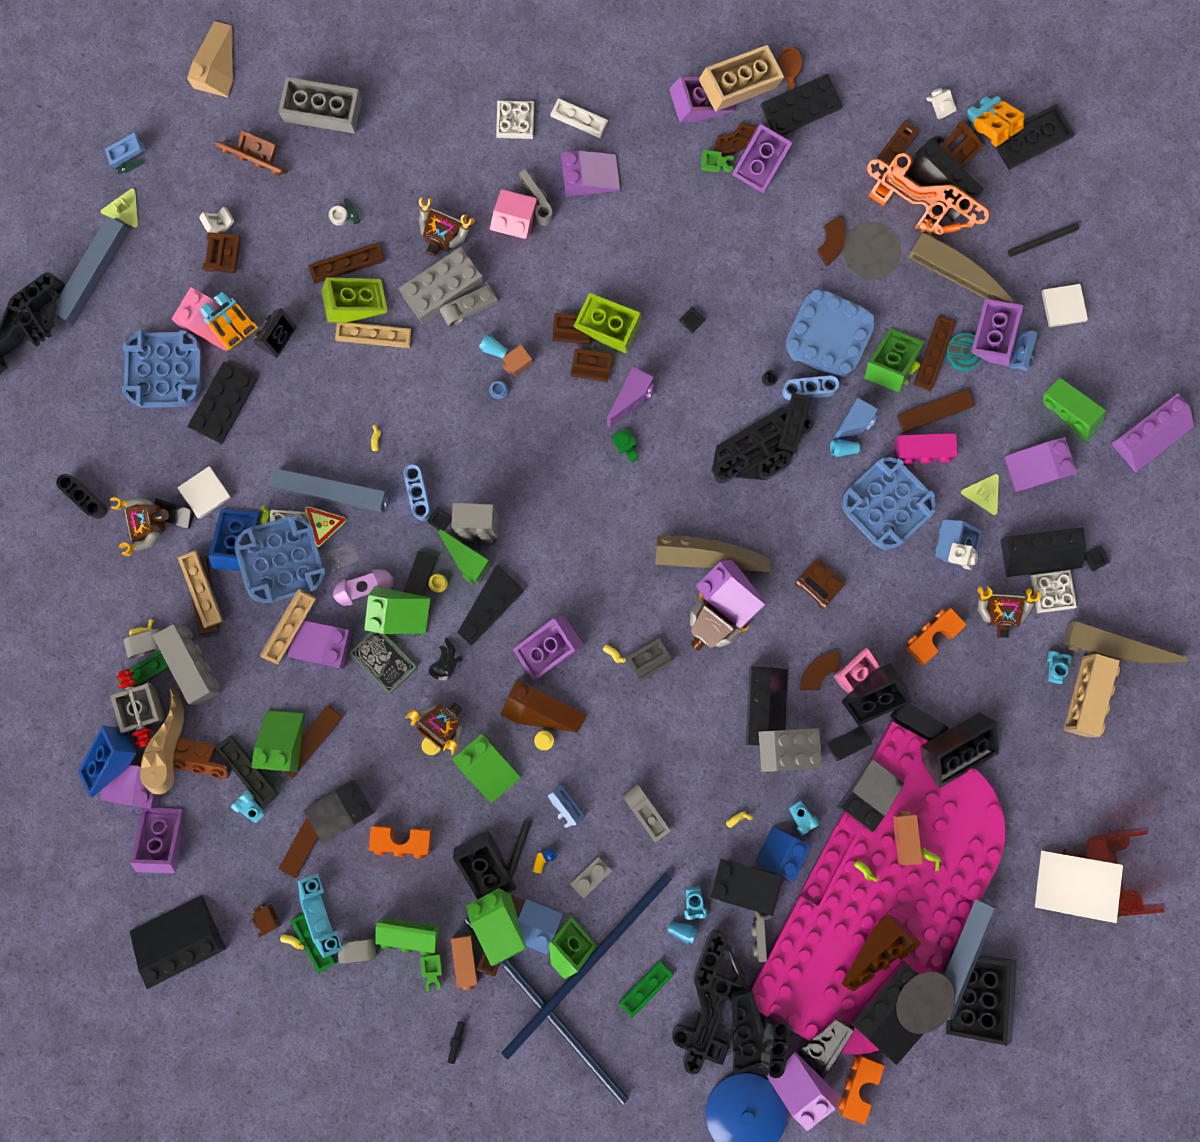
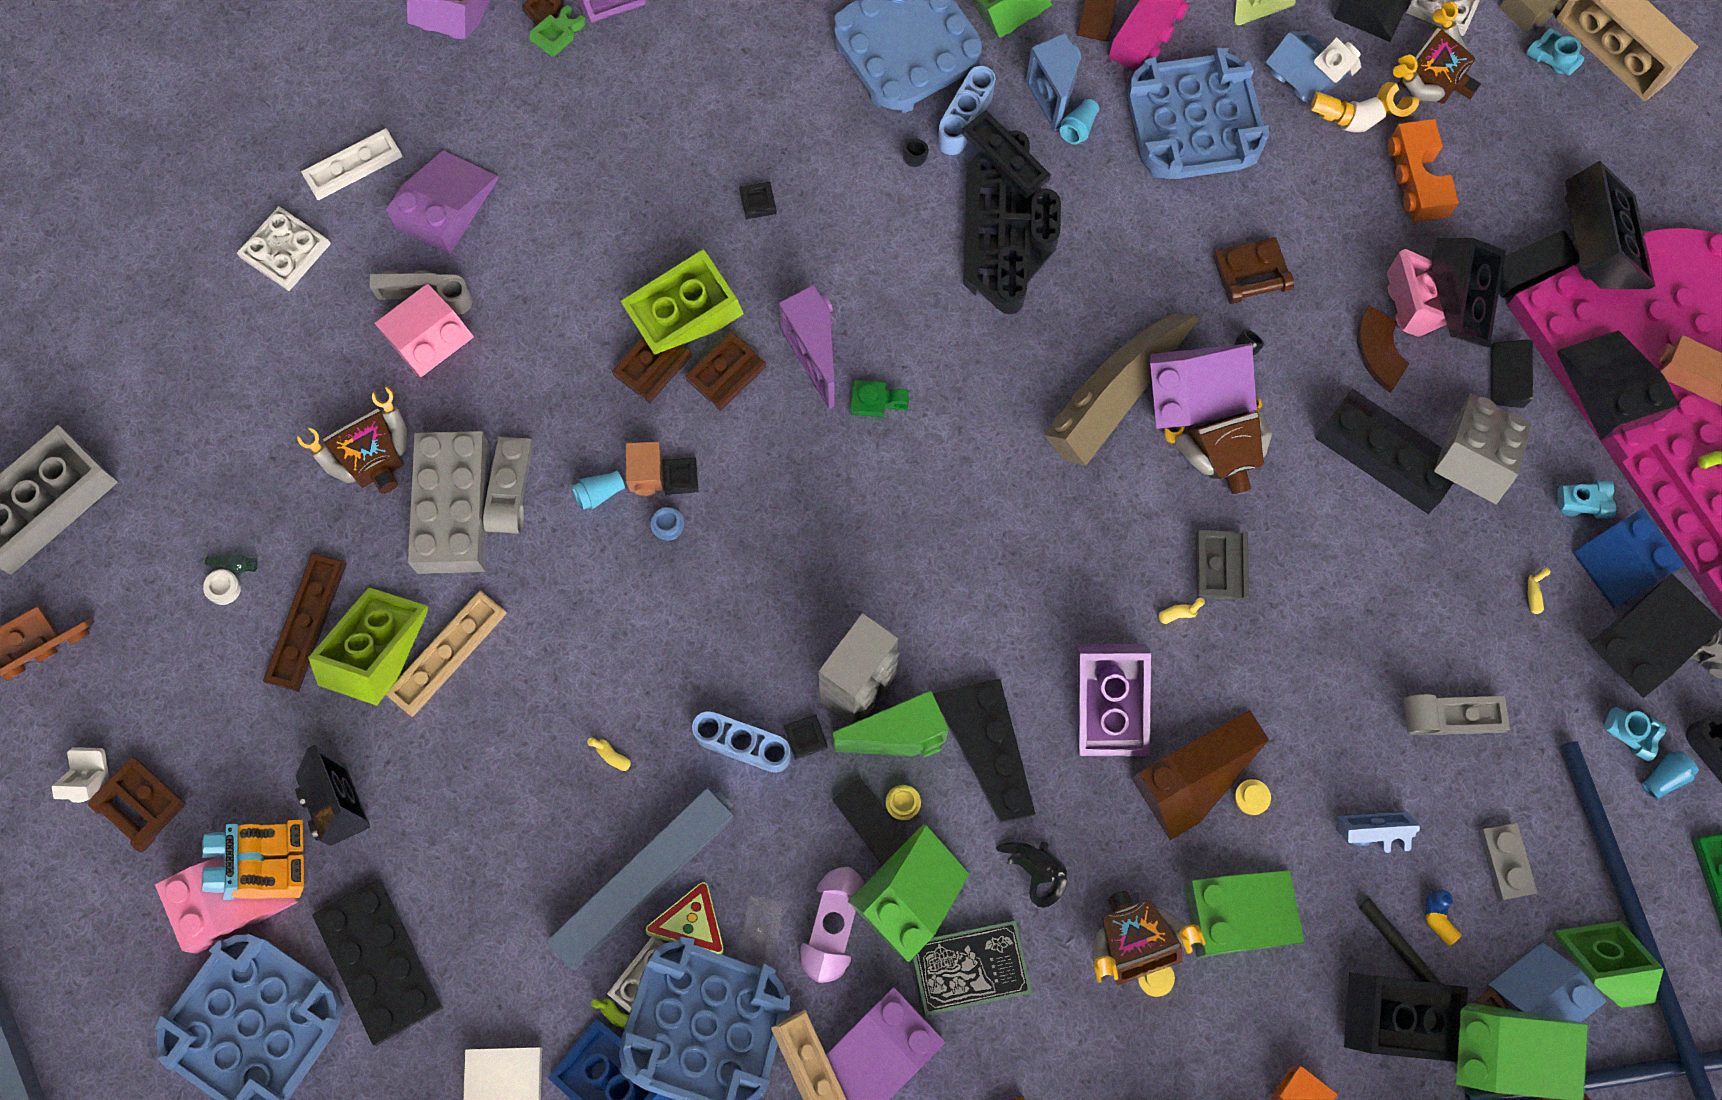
camera: 60 degrees left, 10 degrees down
(526, 380) = (680, 476): none -> black tile
(777, 604) = (1248, 336): none -> black hinge
(947, 587) = (1363, 115): none -> yellow piece

